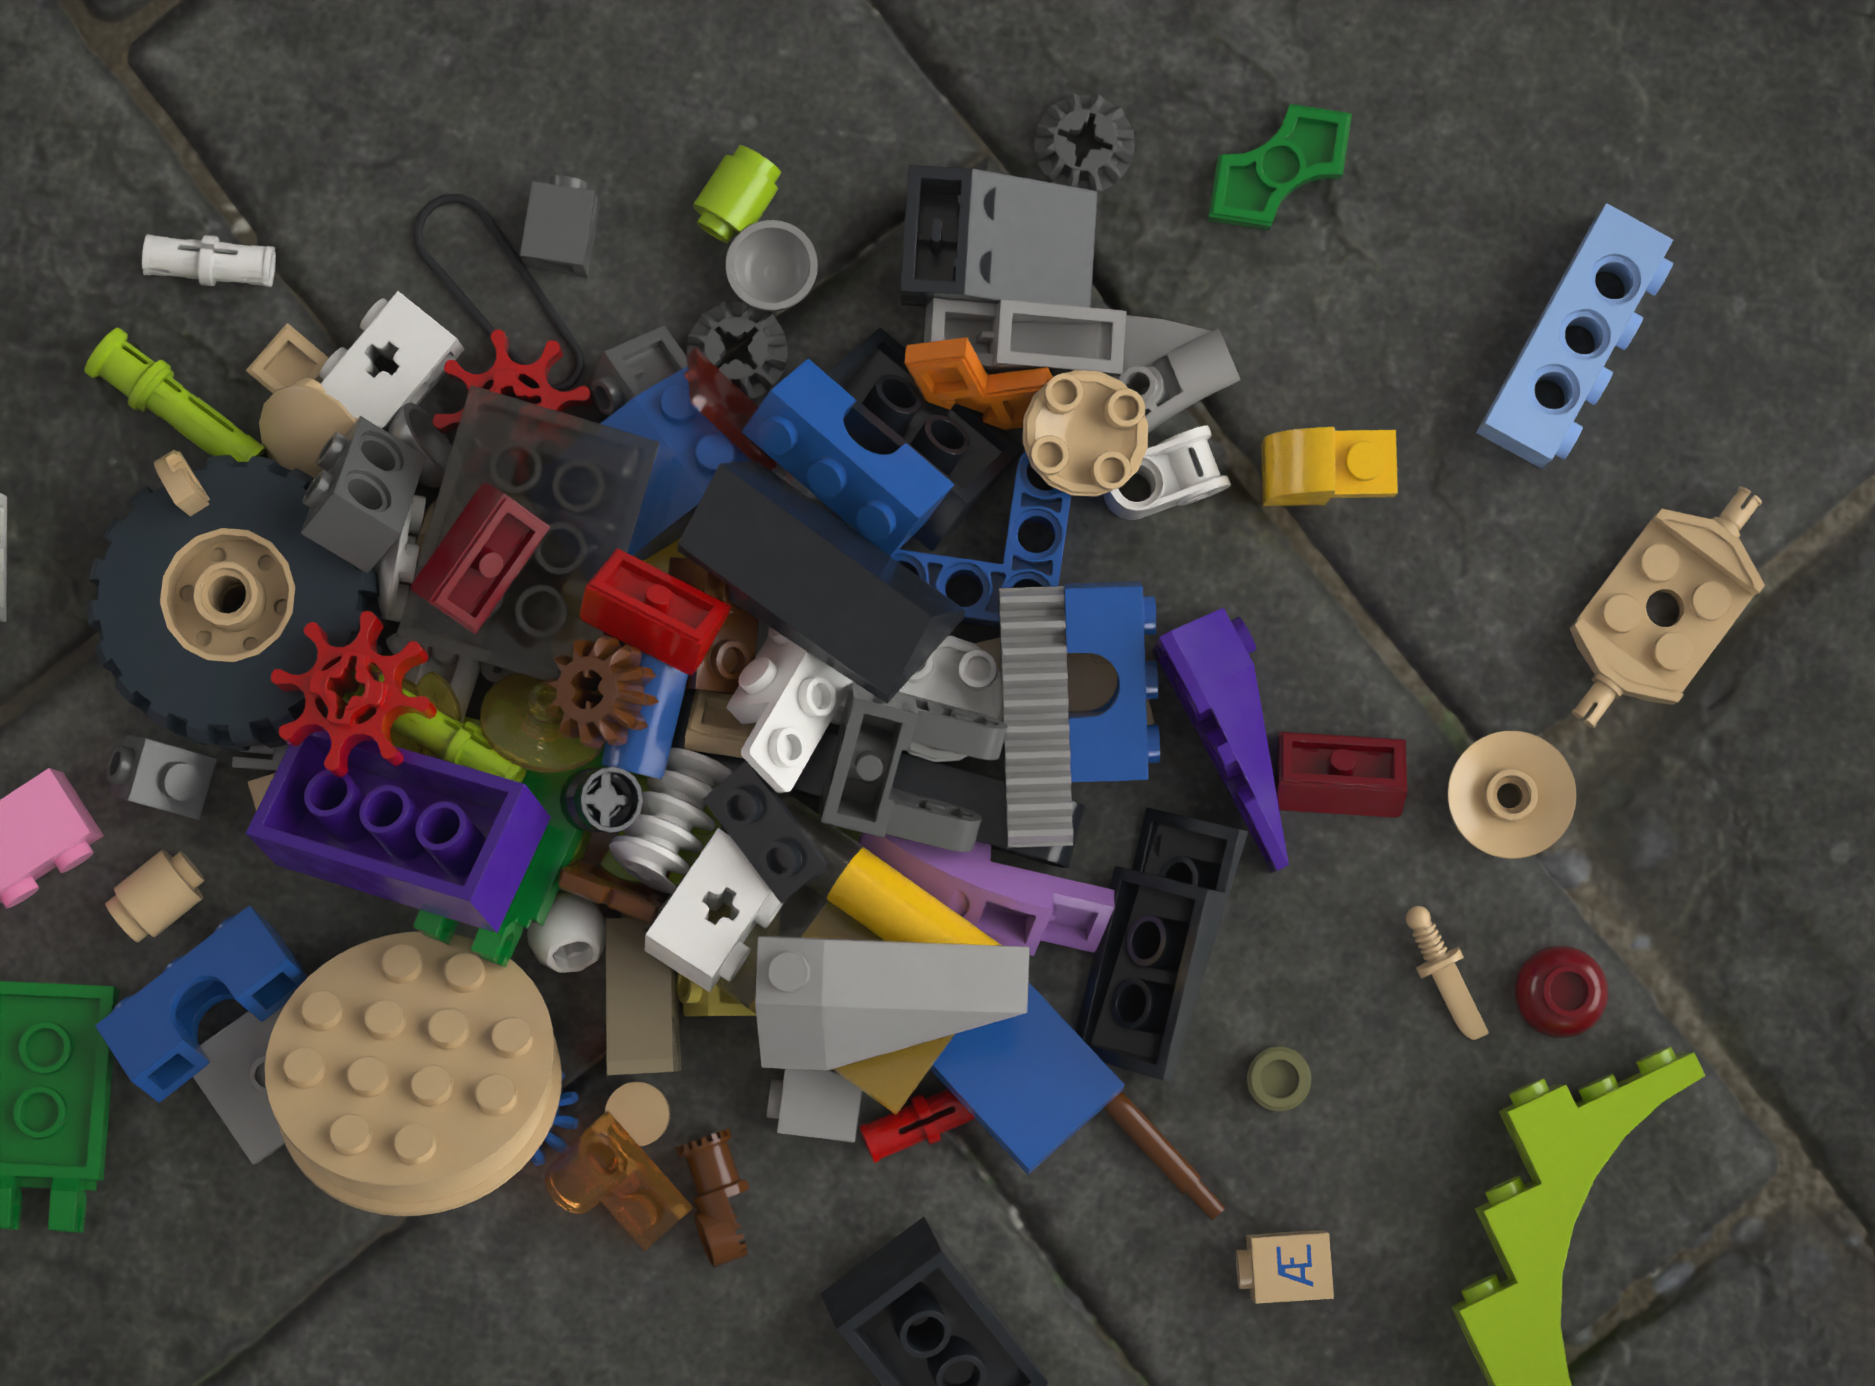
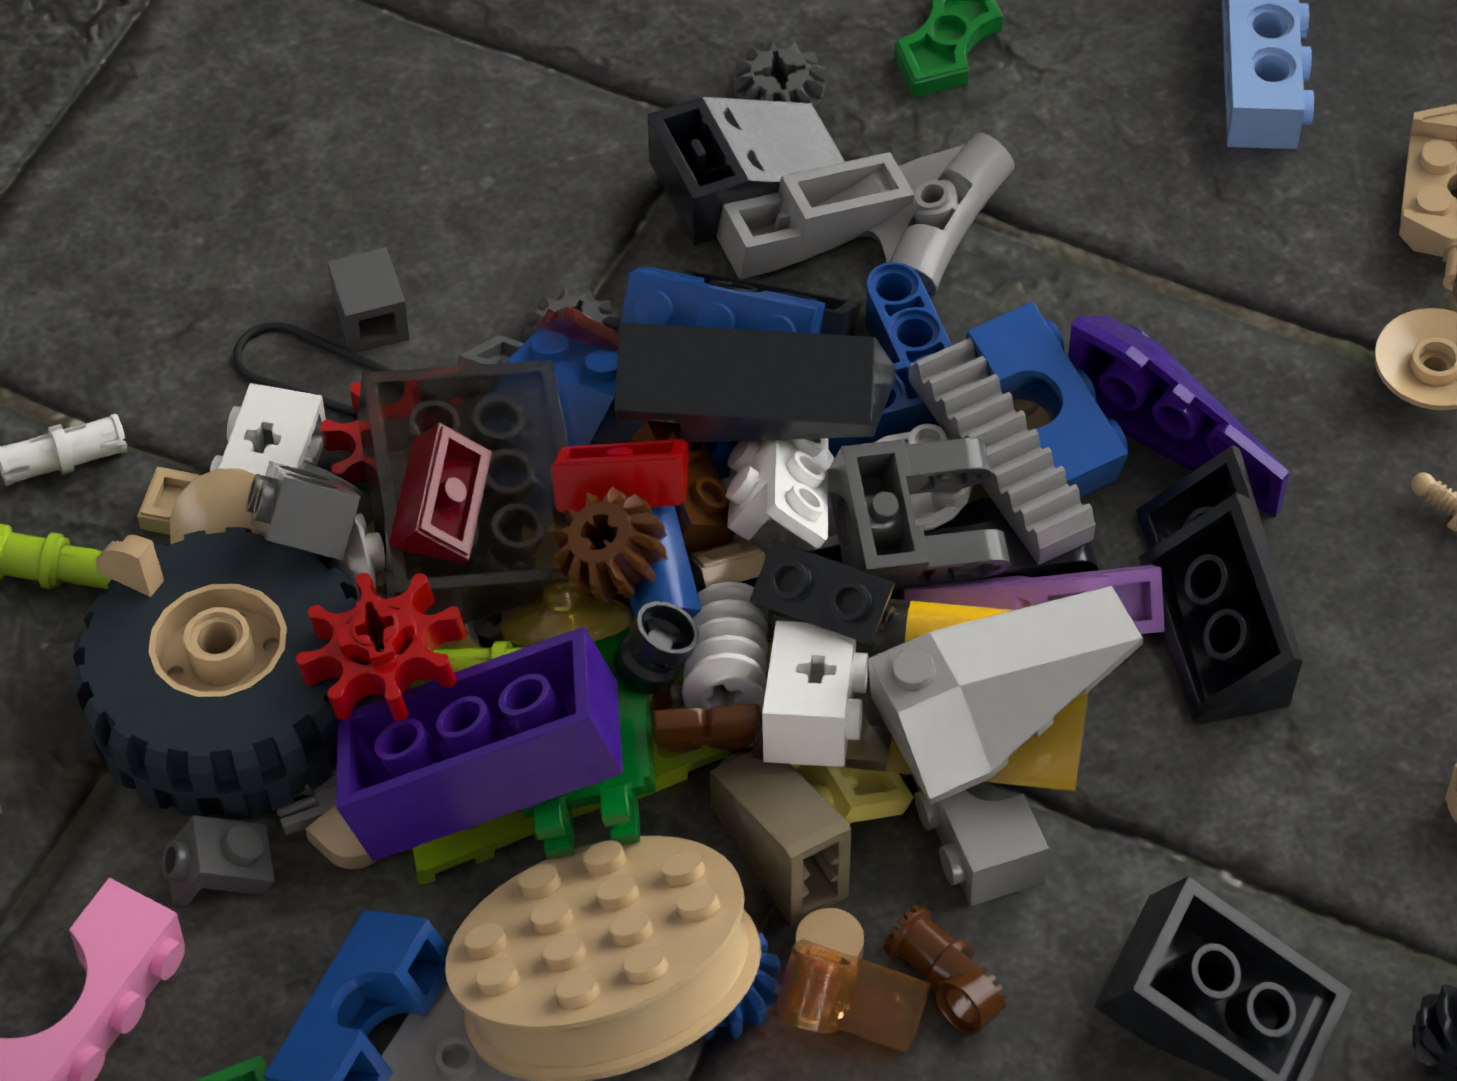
camera: 25 degrees left, 30 degrees down
(156, 895) = (265, 955): tan brick -> none
(571, 934) = (680, 807): white piece -> none
(736, 194) = (509, 218): lime brick -> none
(771, 265) = (569, 249): light grey piece -> none
(883, 1135) = (1099, 822): red pin -> none
(953, 374) = (823, 263): orange tile -> none
(1027, 1080) = (1167, 733): blue tile -> none
(1085, 433) = (911, 234): tan dish -> none
(1163, 1154) = (1318, 757): reddish brown piece -> none
(1178, 474) = (993, 266): white piece -> none
(1278, 1078) = (1389, 660): olive tile -> none
(1324, 464) = (1112, 189): yellow brick -> none
(1341, 774) = (1296, 413): dark red slope -> none

